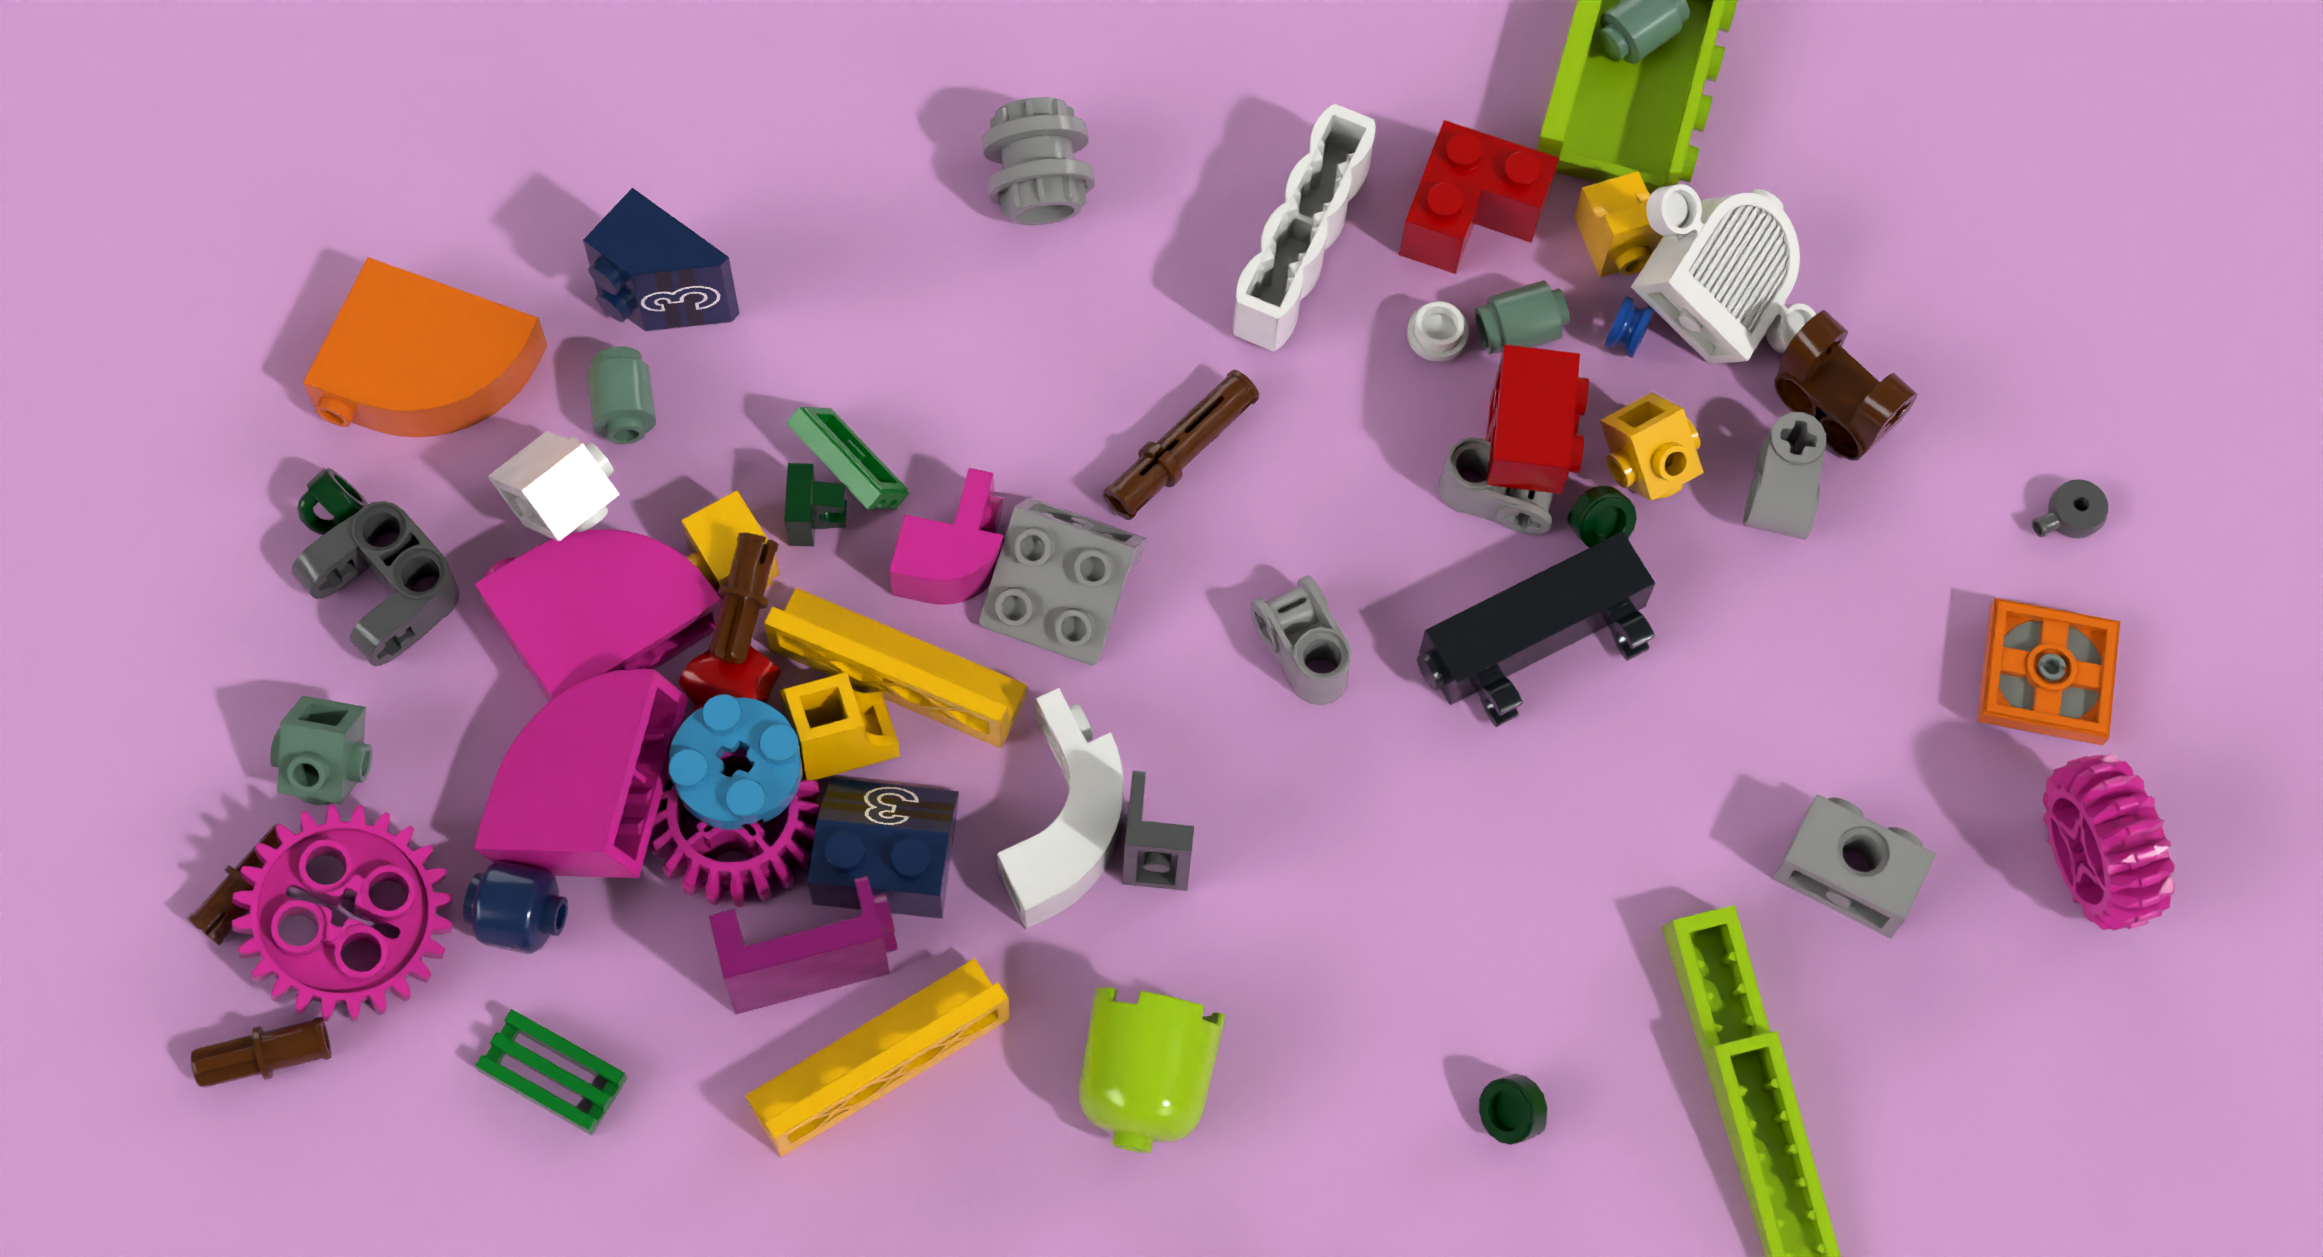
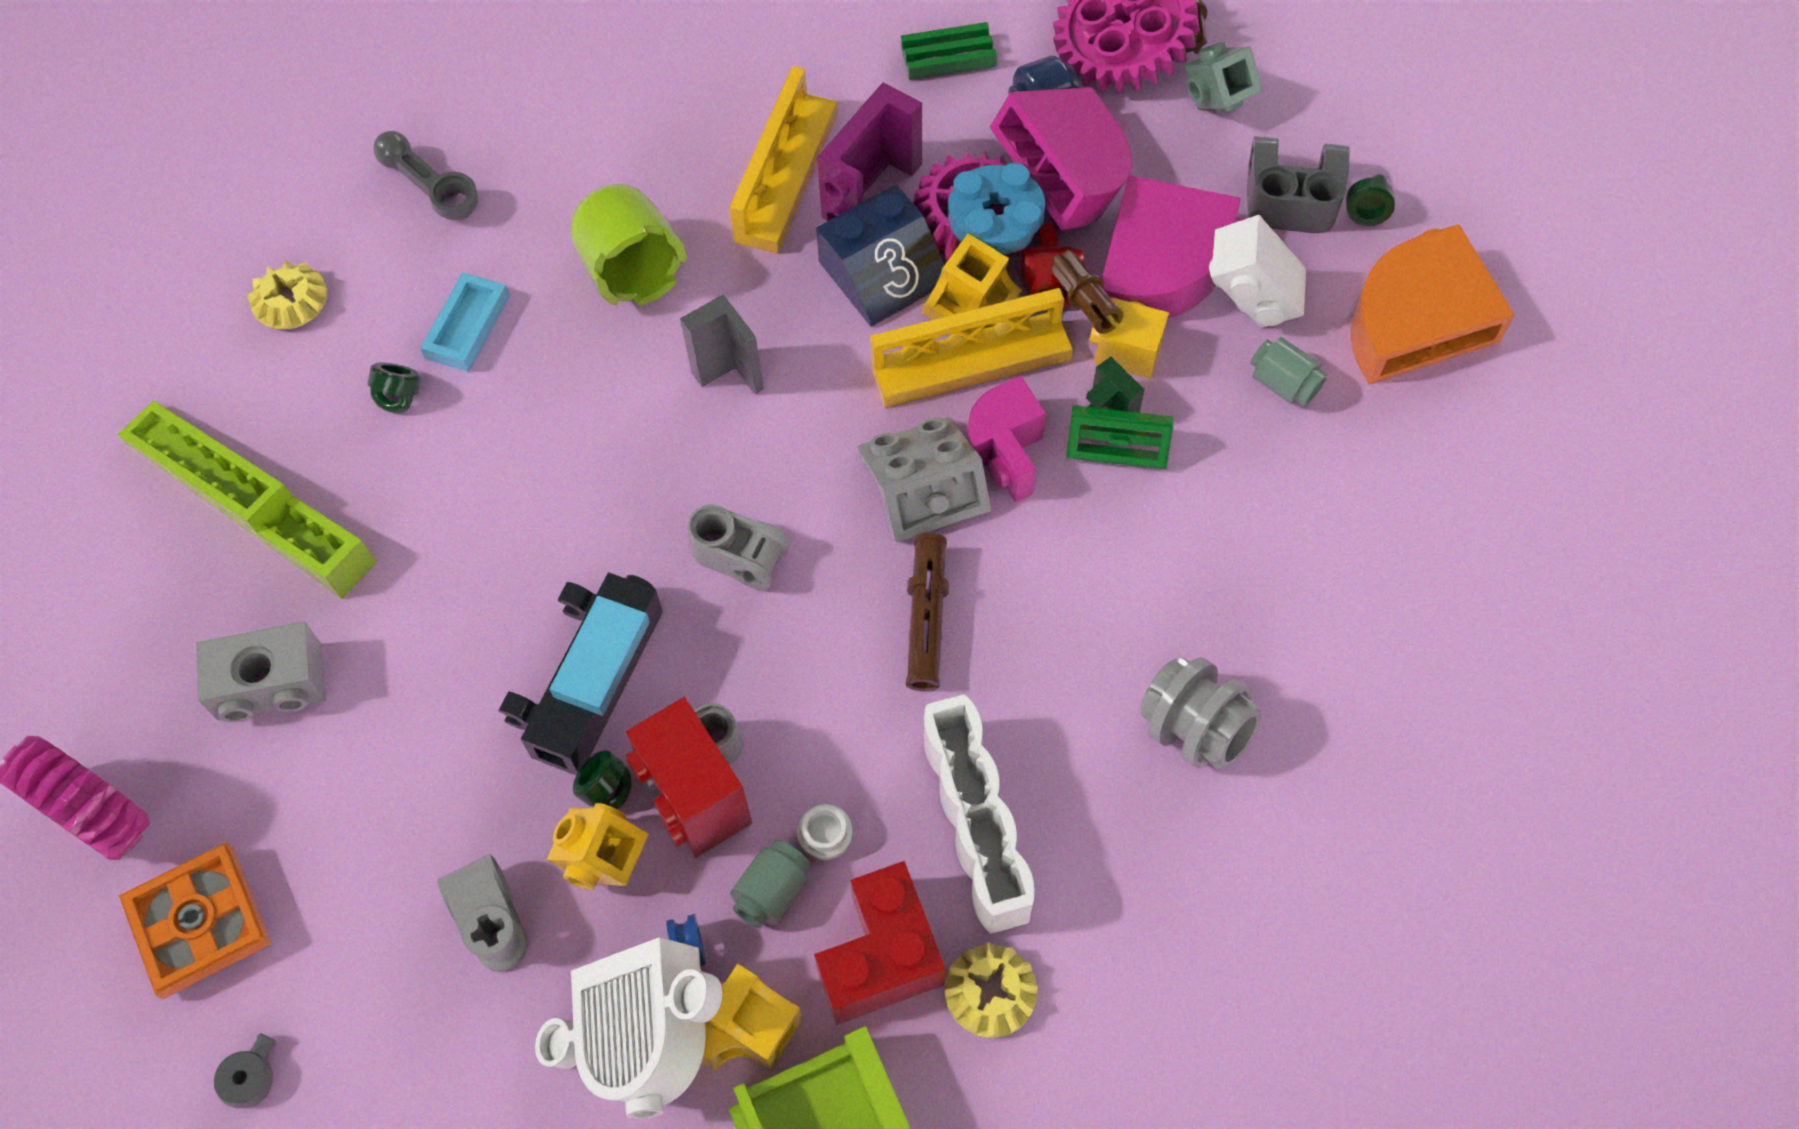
camera: 145 degrees right, 5 degrees down
(658, 269) = (1350, 439): dark blue slope -> none
(1071, 854) = (789, 369): white arch -> none
(1380, 1142) = (465, 322): none -> medium azure tile
(1394, 135) = (1001, 1015): none -> light yellow gear
(1528, 595) = (599, 655): none -> medium azure tile
(1837, 390) = (475, 1007): reddish brown piece -> none

